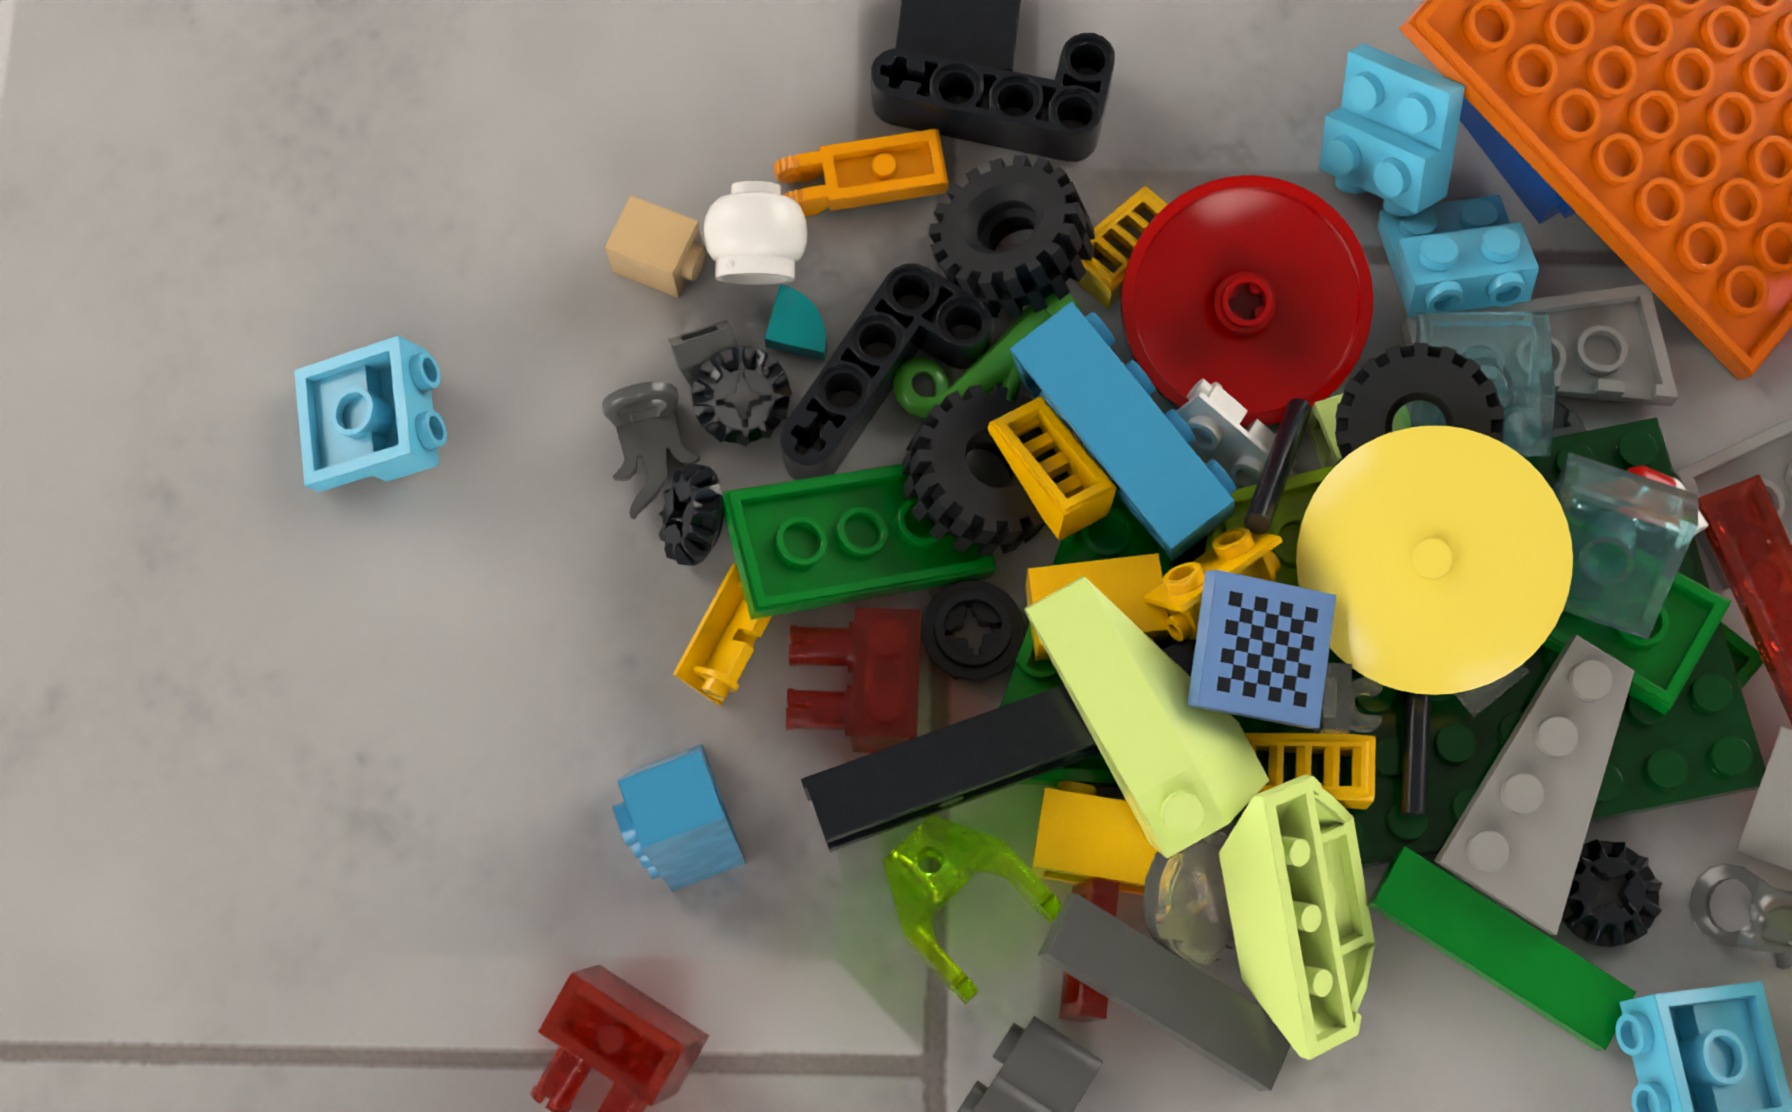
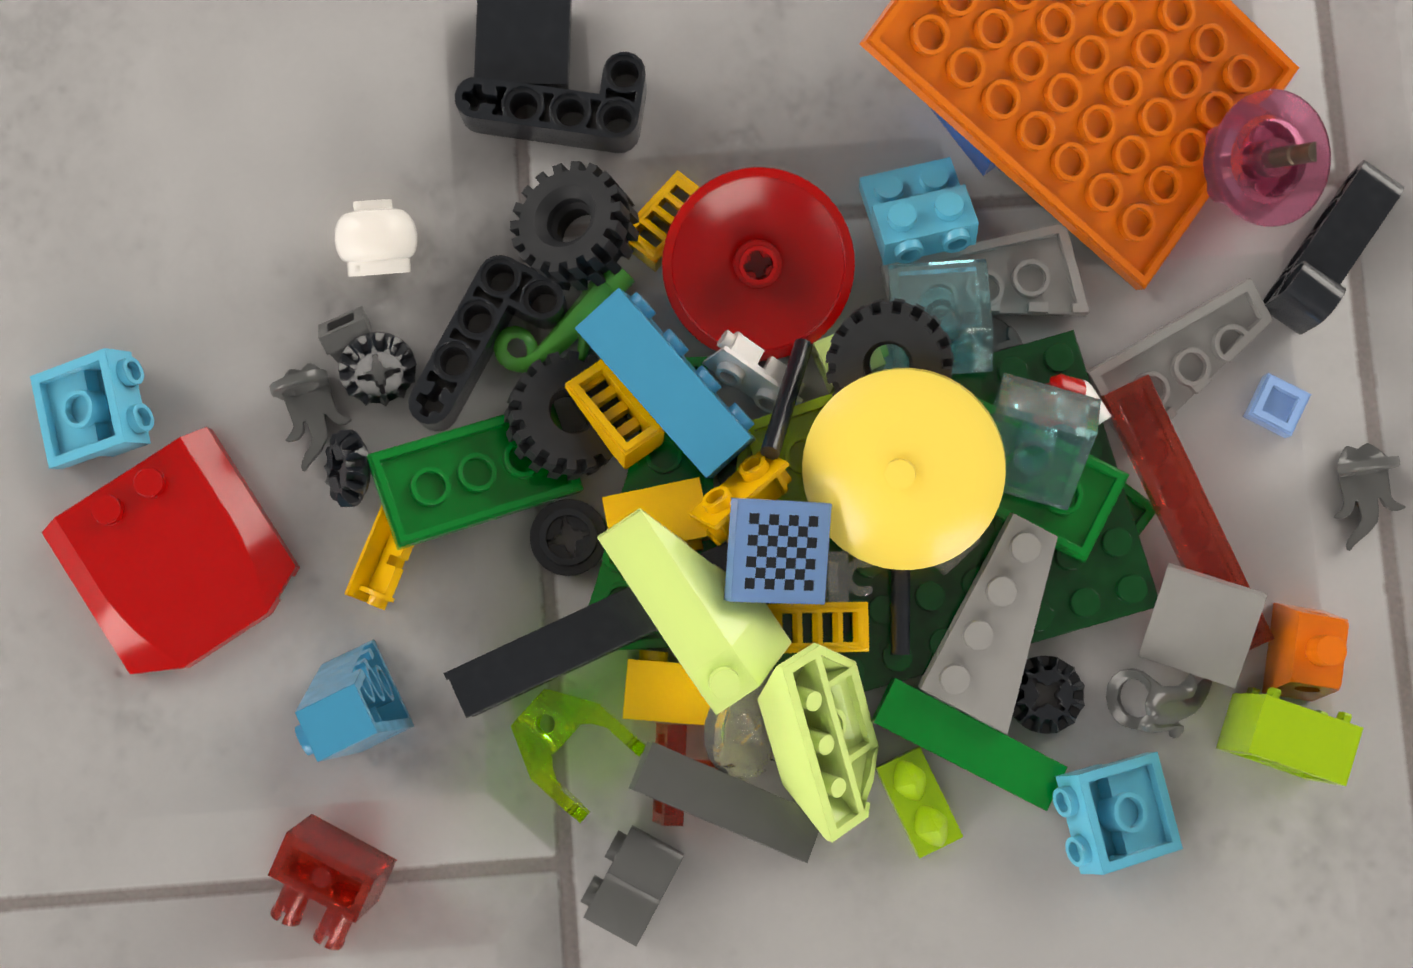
camera: 10 degrees left, 10 degrees up
(451, 613) = (174, 555): none -> red wedge
(656, 247) = (300, 253): tan brick -> none
(796, 325) = (416, 306): teal tile -> none
(867, 172) = (460, 177): light orange hinge -> none
(885, 666) = (503, 580): clear red brick -> none
(1393, 131) = (863, 119): medium azure plate -> none
(1427, 1024) = (918, 802): none -> lime tile

